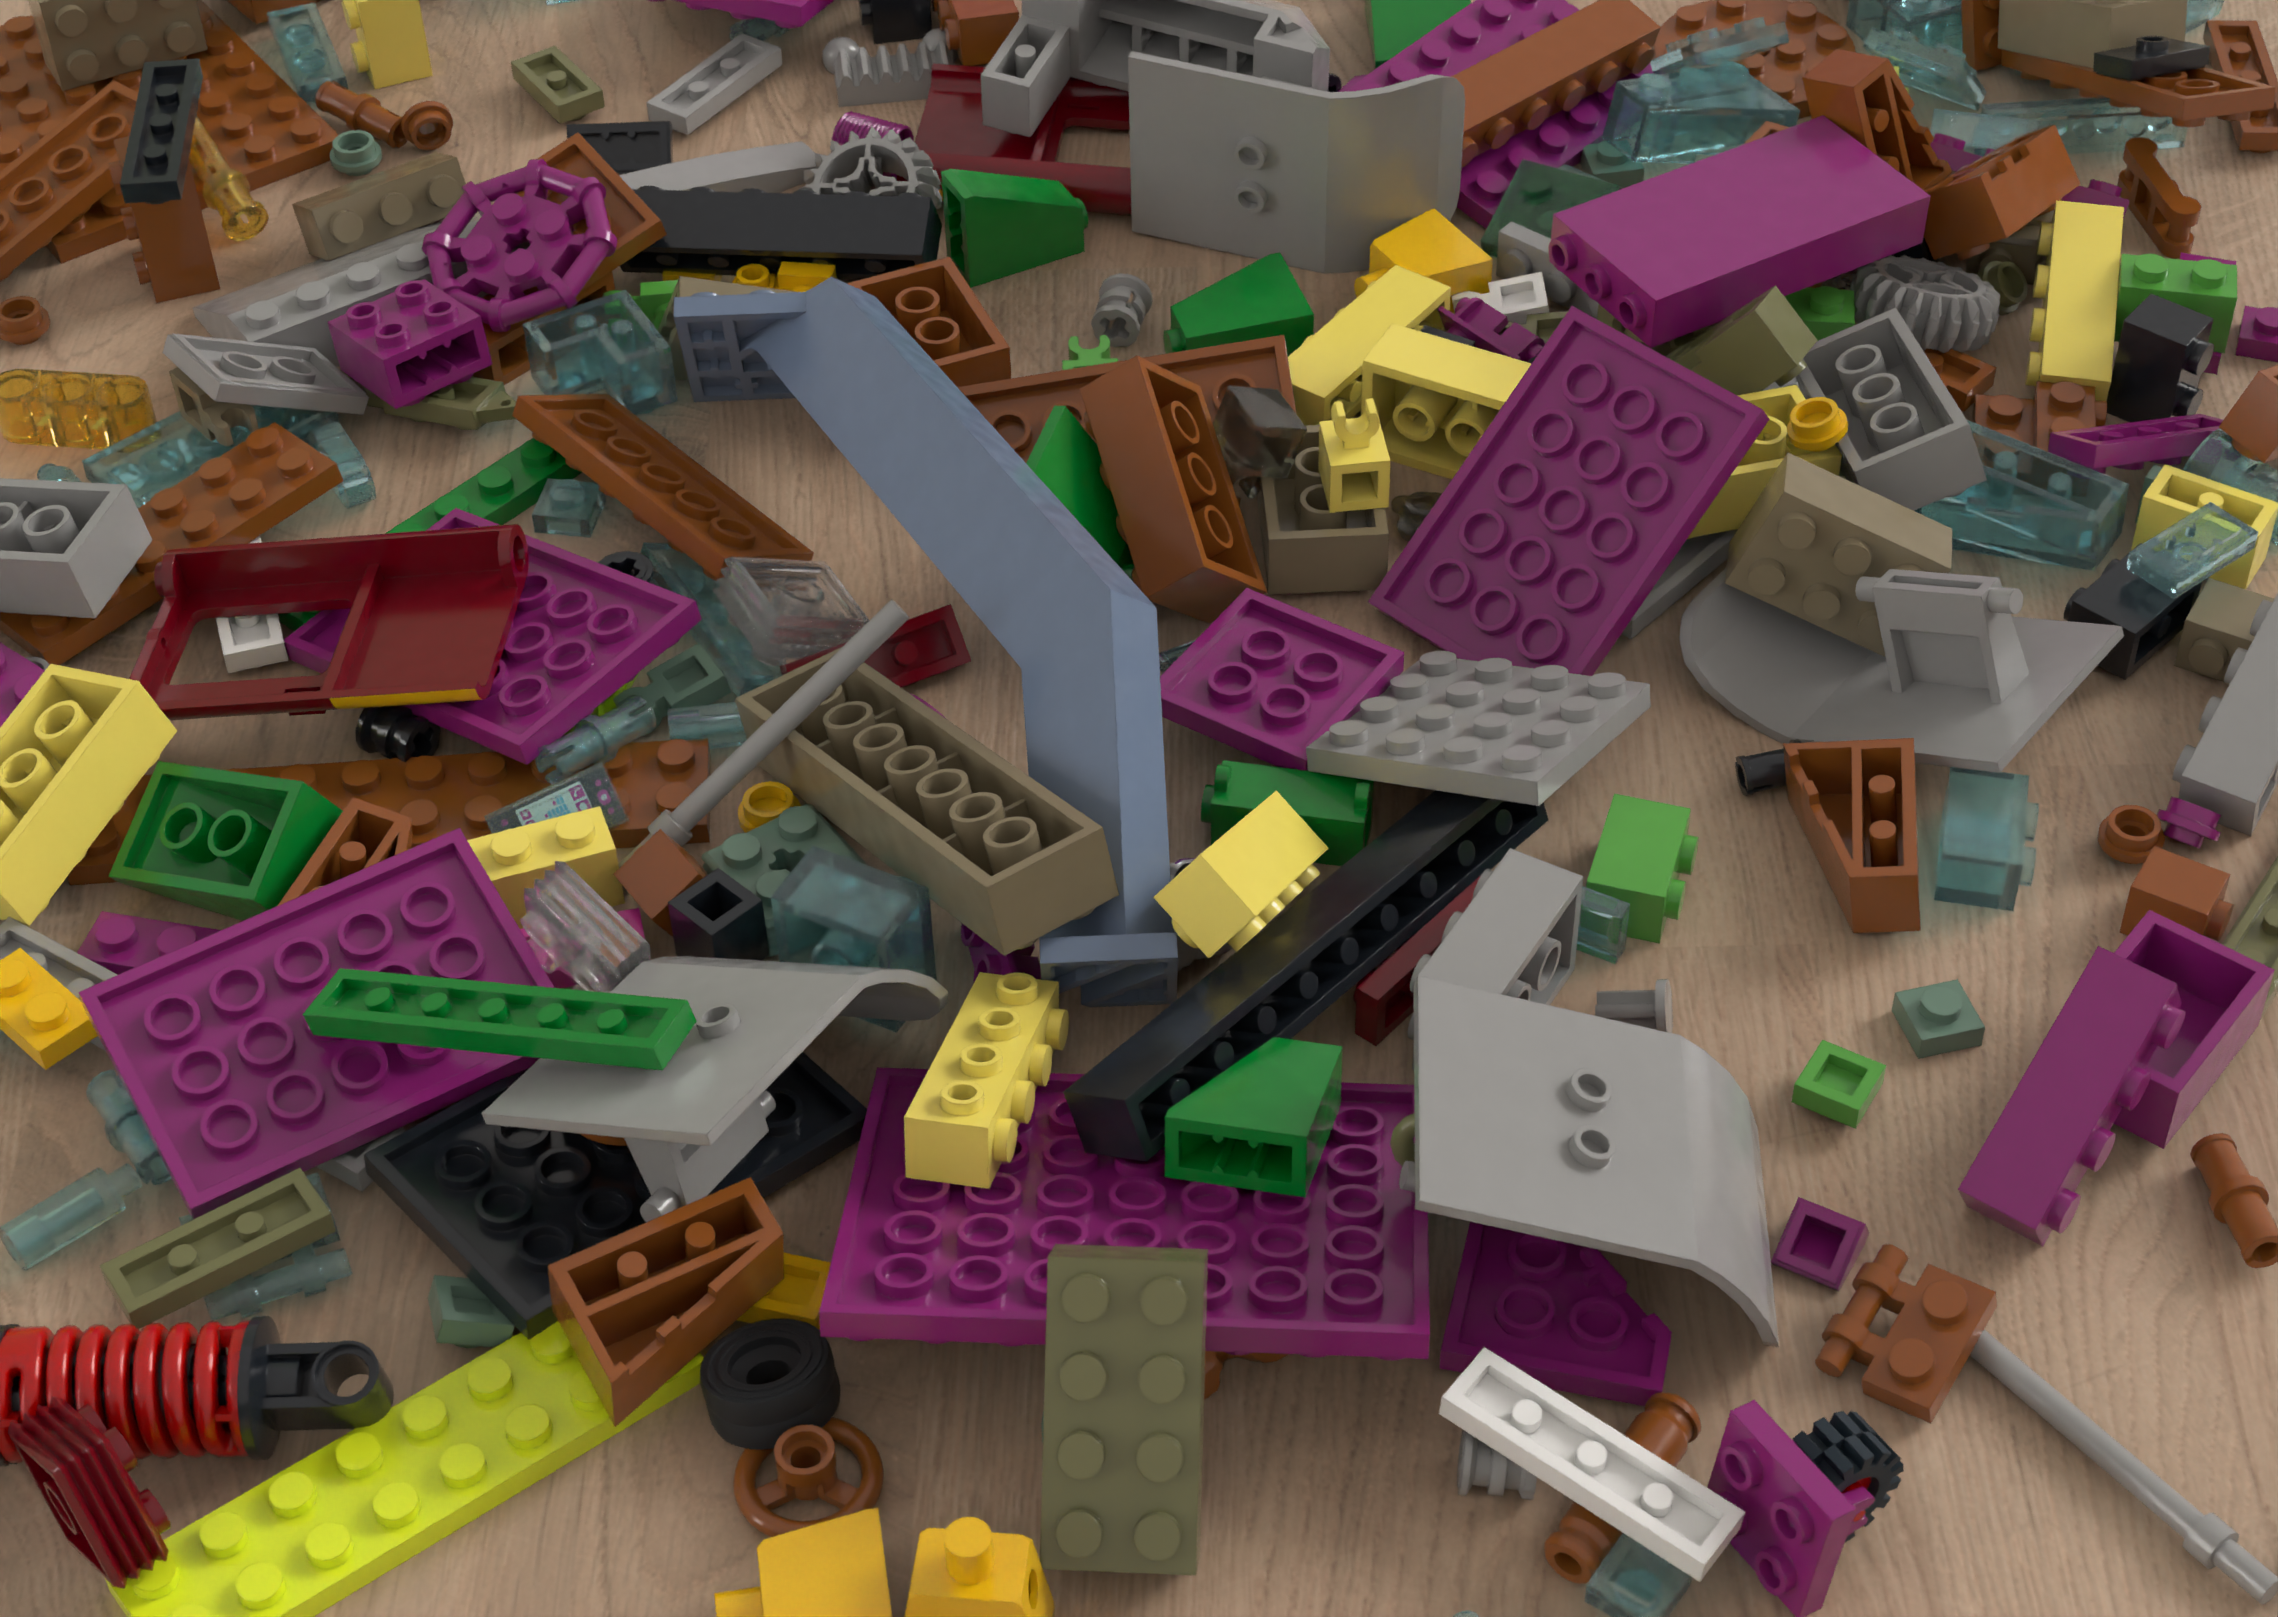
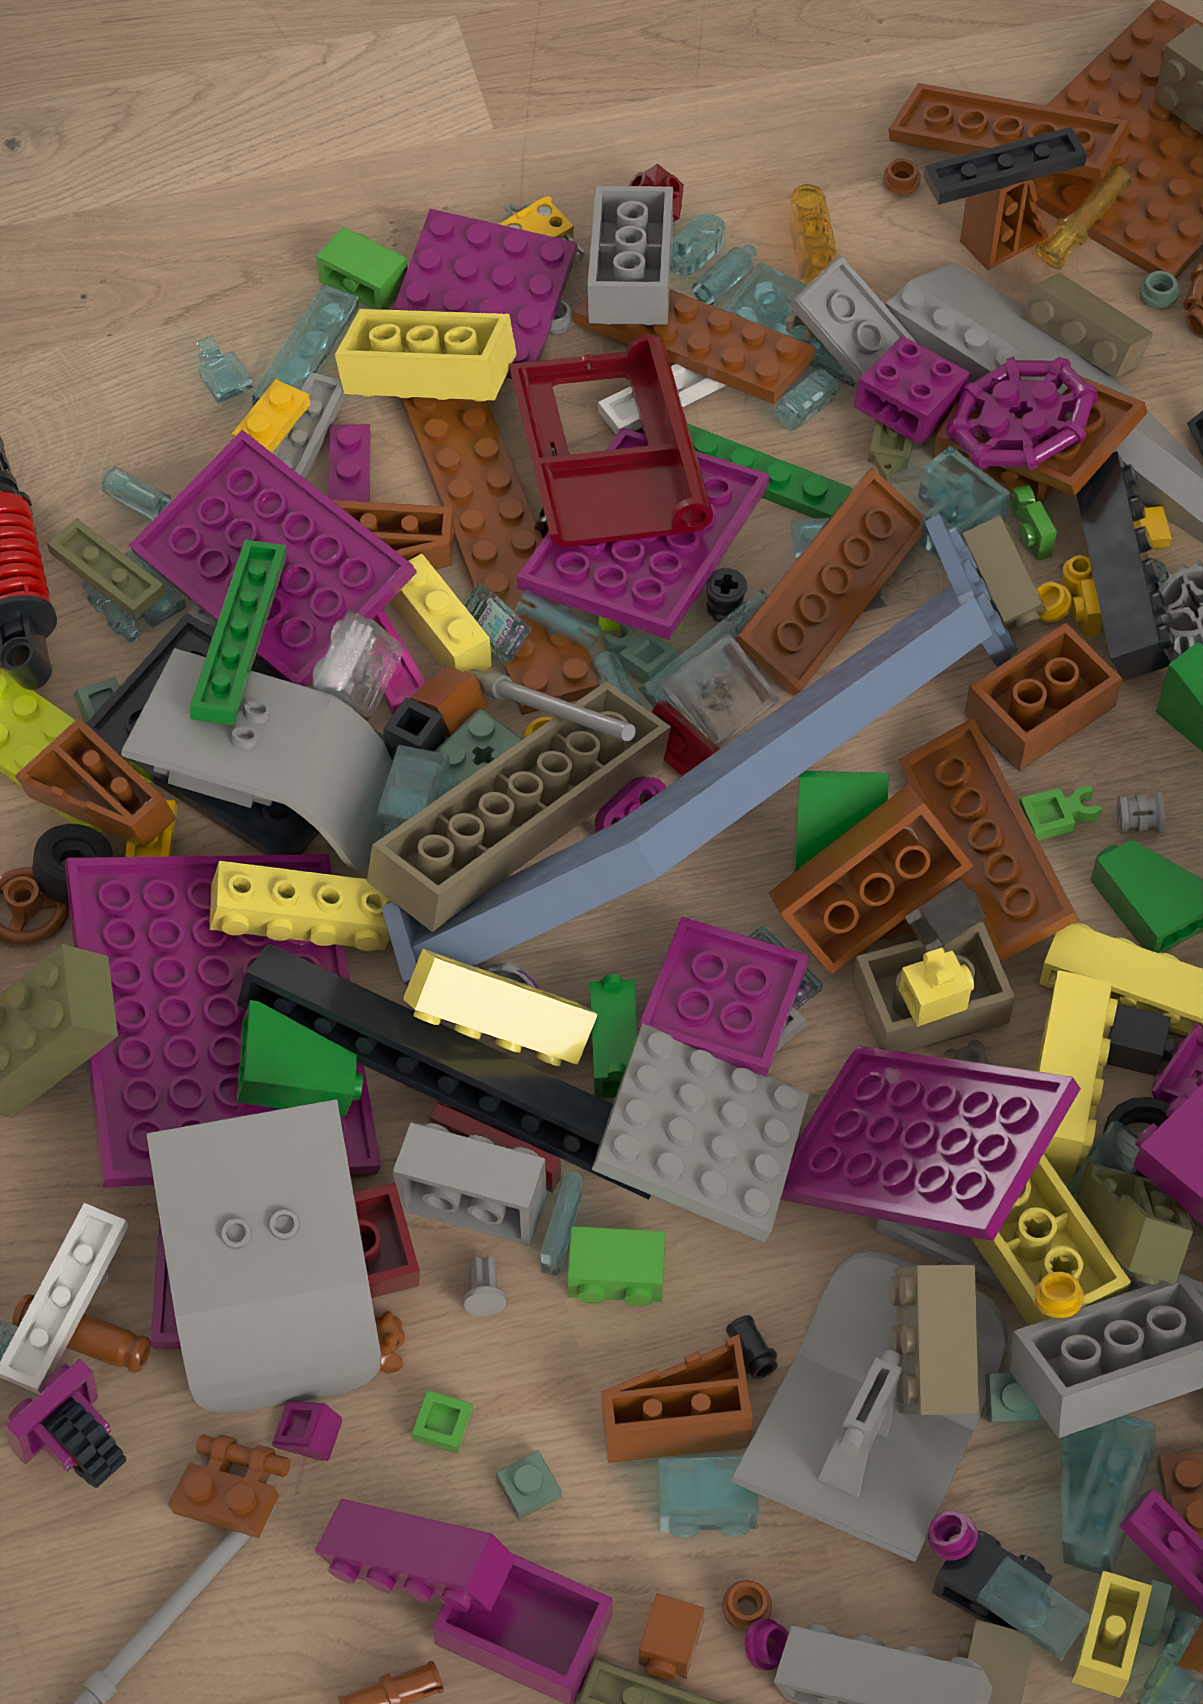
camera: 75 degrees right, 15 degrees up
(222, 838) = (421, 458): green slope -> none
(2092, 584) = (947, 1525): none -> magenta plate

